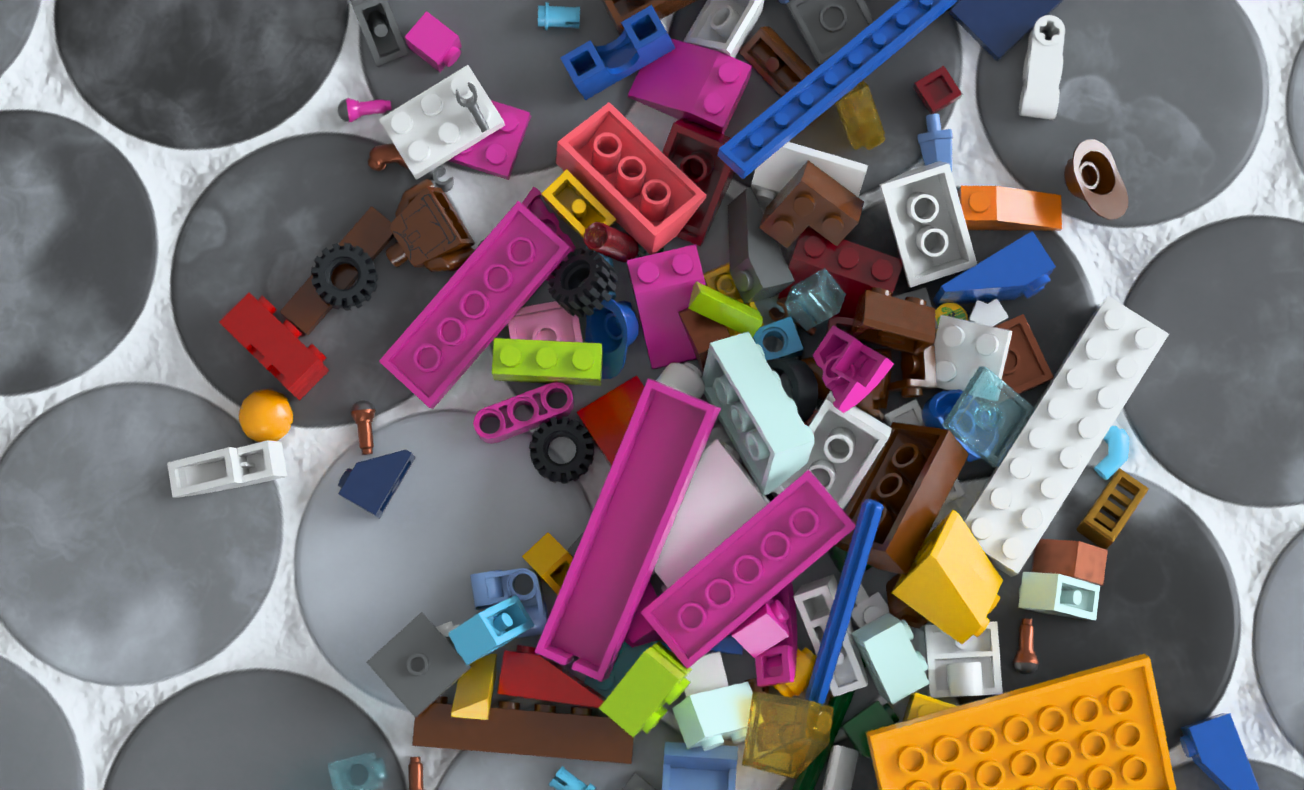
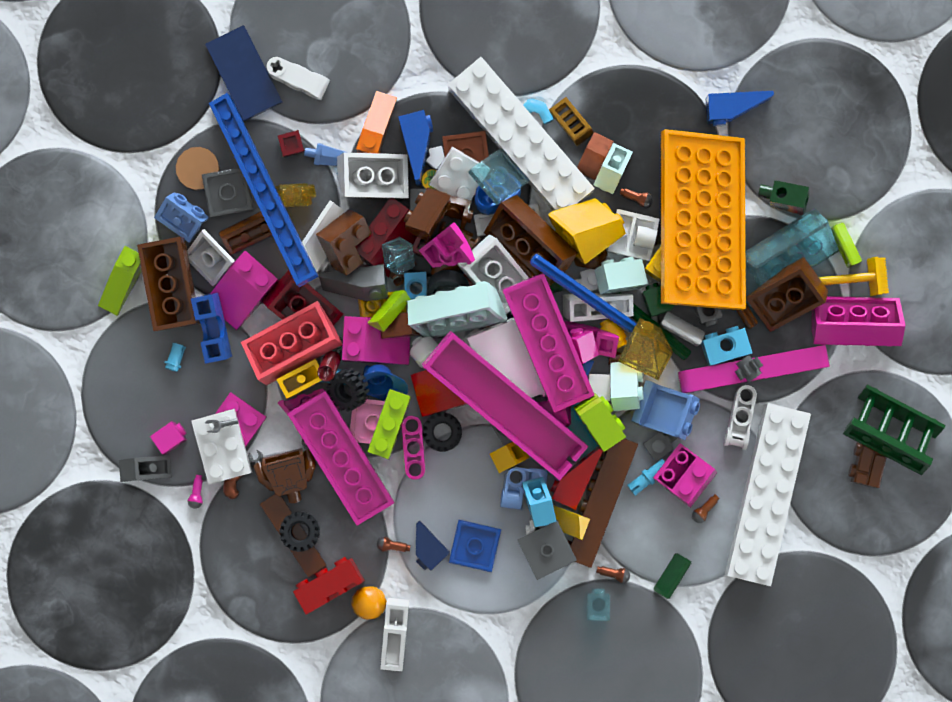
camera: 75 degrees left, 5 degrees up
(399, 553) = (475, 545): none -> blue tile
(1095, 179) = (375, 67): piece -> none

